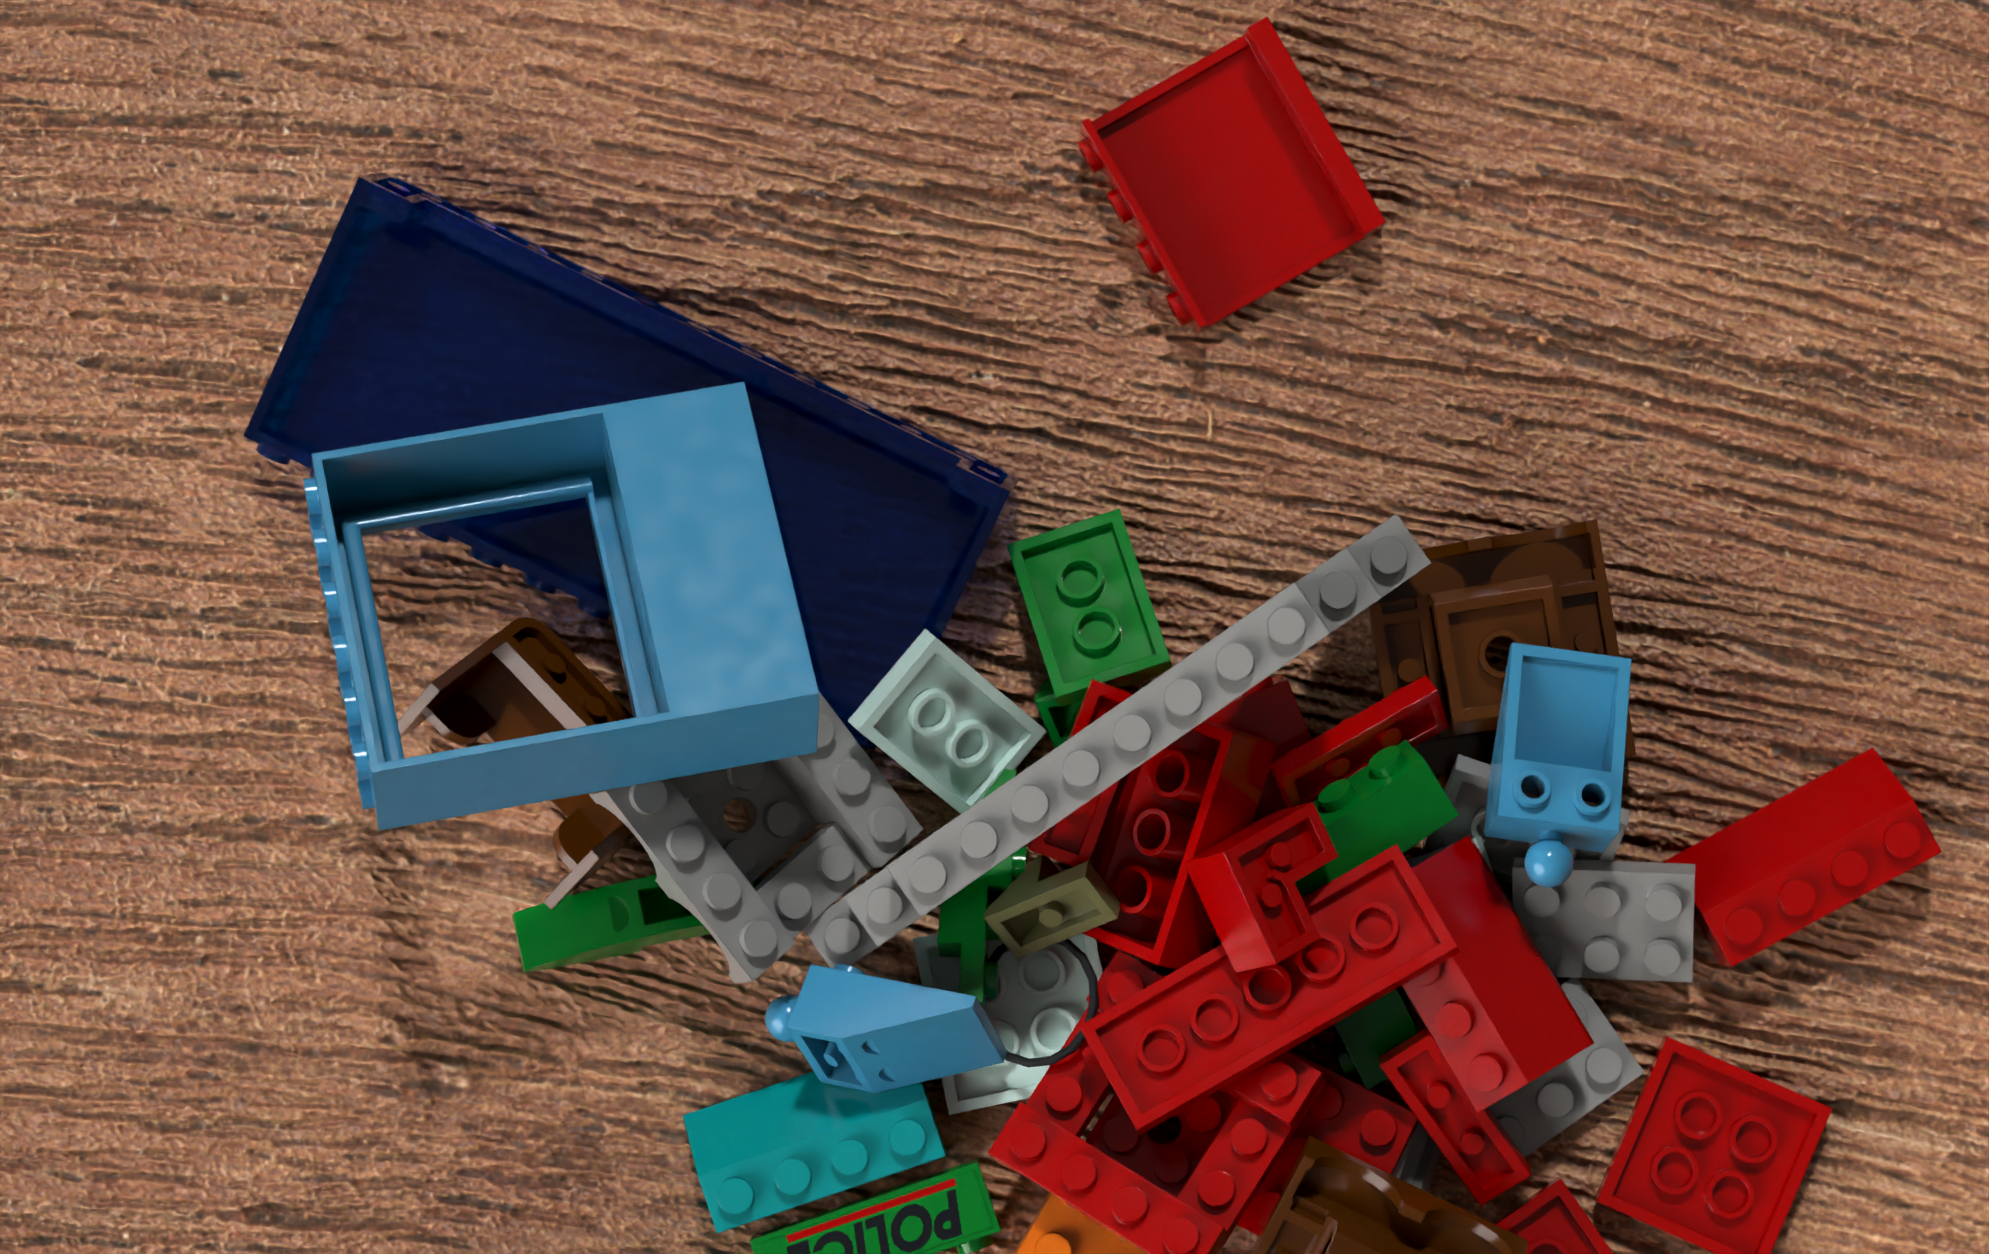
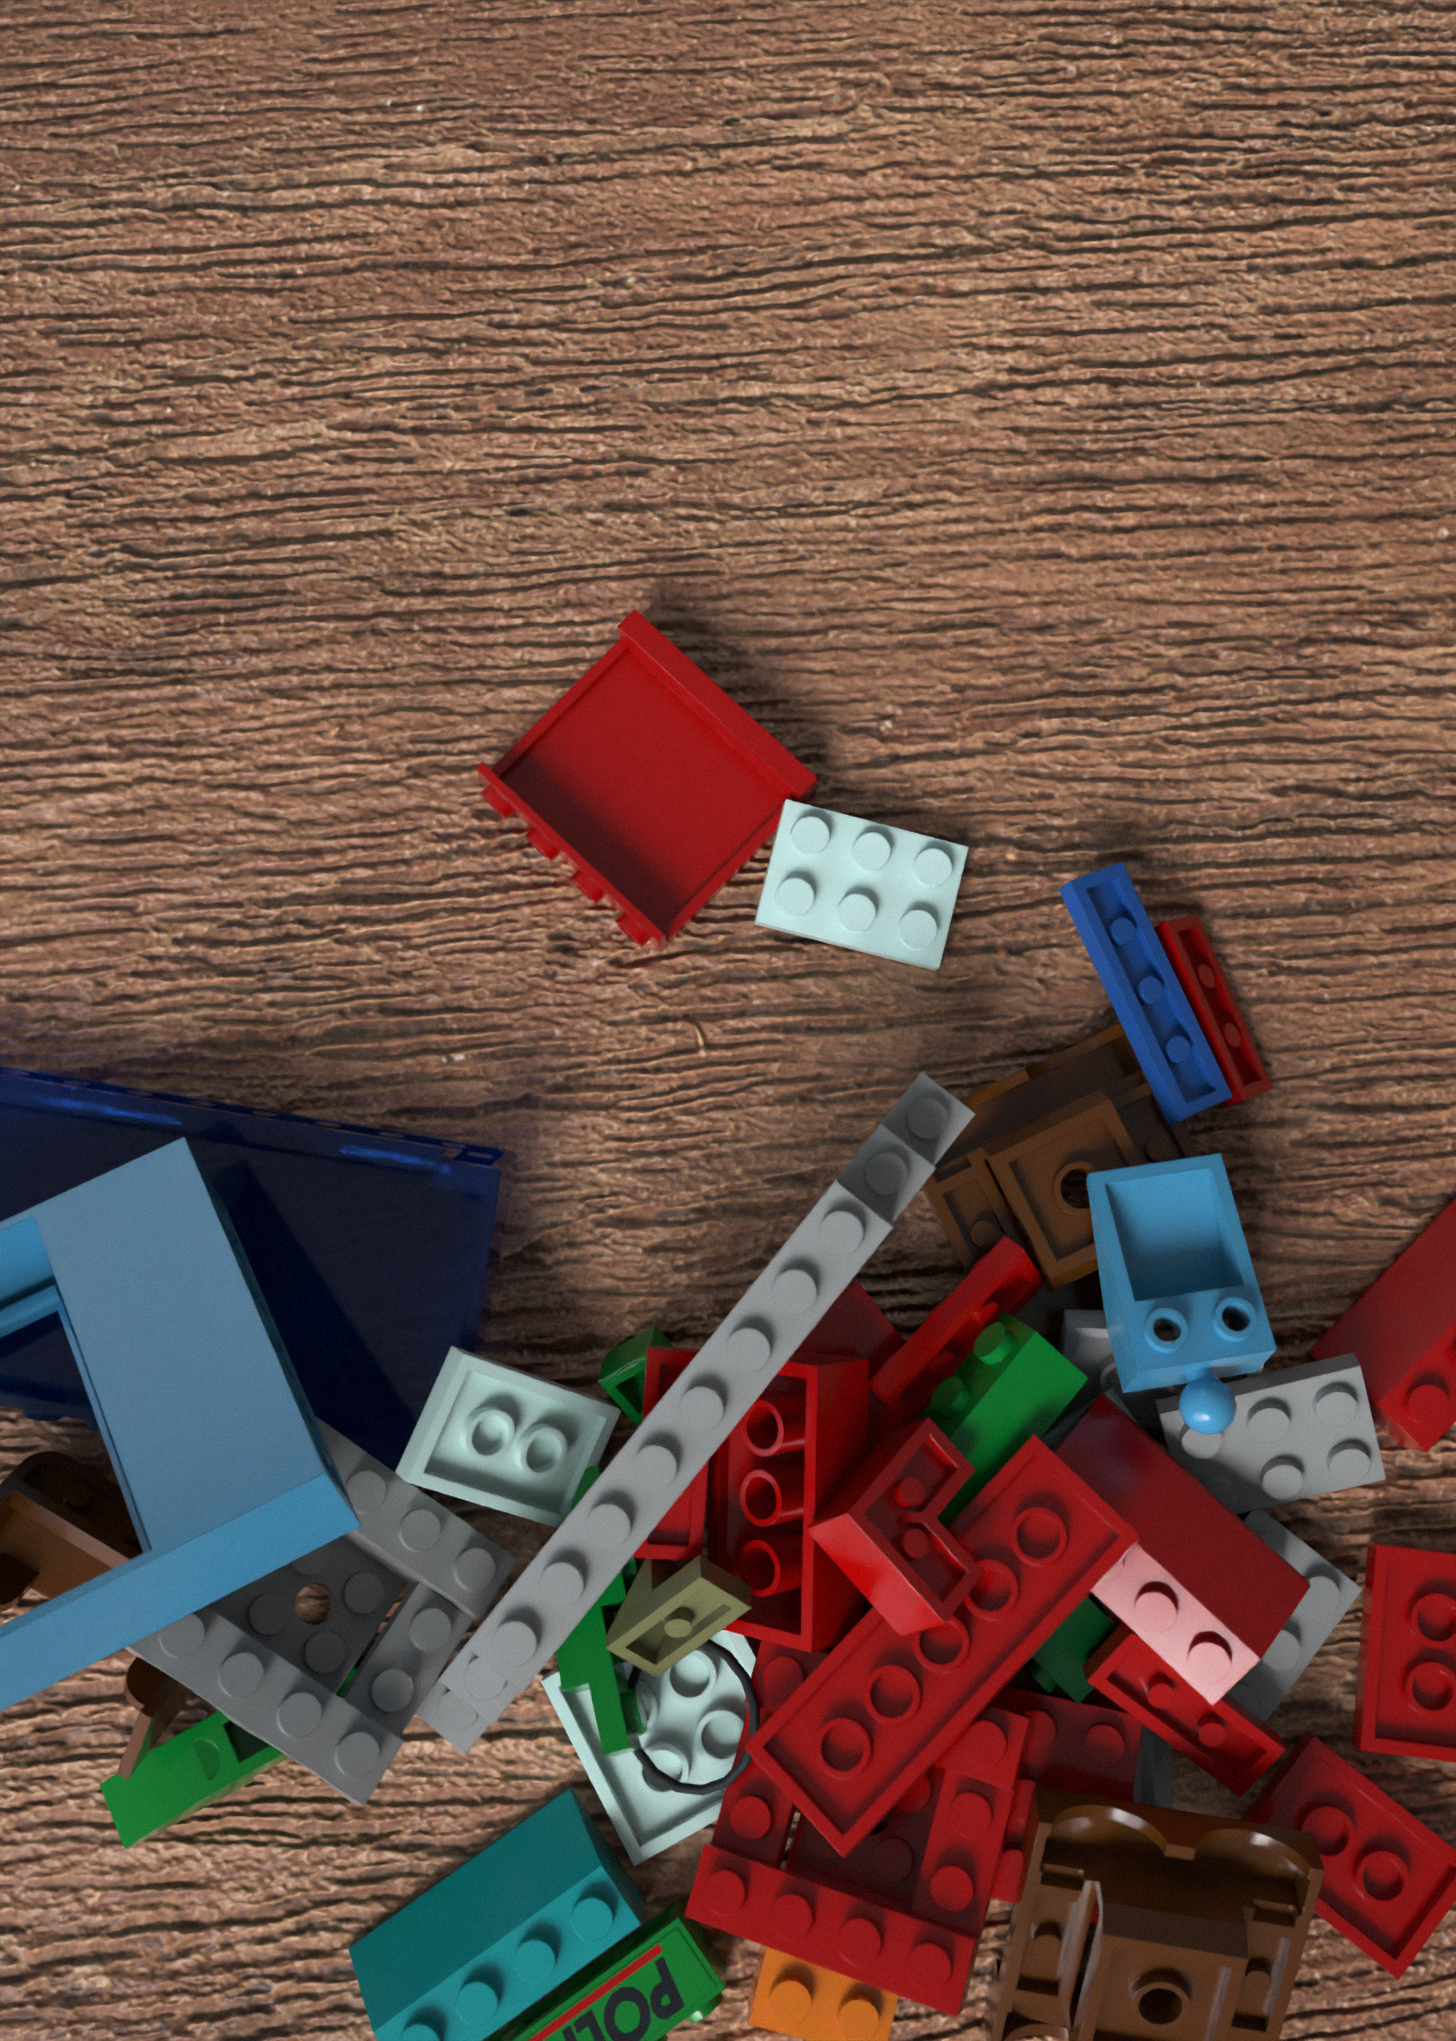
camera: 15 degrees left, 5 degrees down
(882, 1030) = (527, 1807): dark azure slope -> none
(1089, 606) = (627, 1268): green plate -> none
(1396, 328) = (861, 885): none -> light aqua plate
(1617, 501) = (1145, 993): none -> blue fence
(1673, 533) = (1214, 1006): none -> red plate

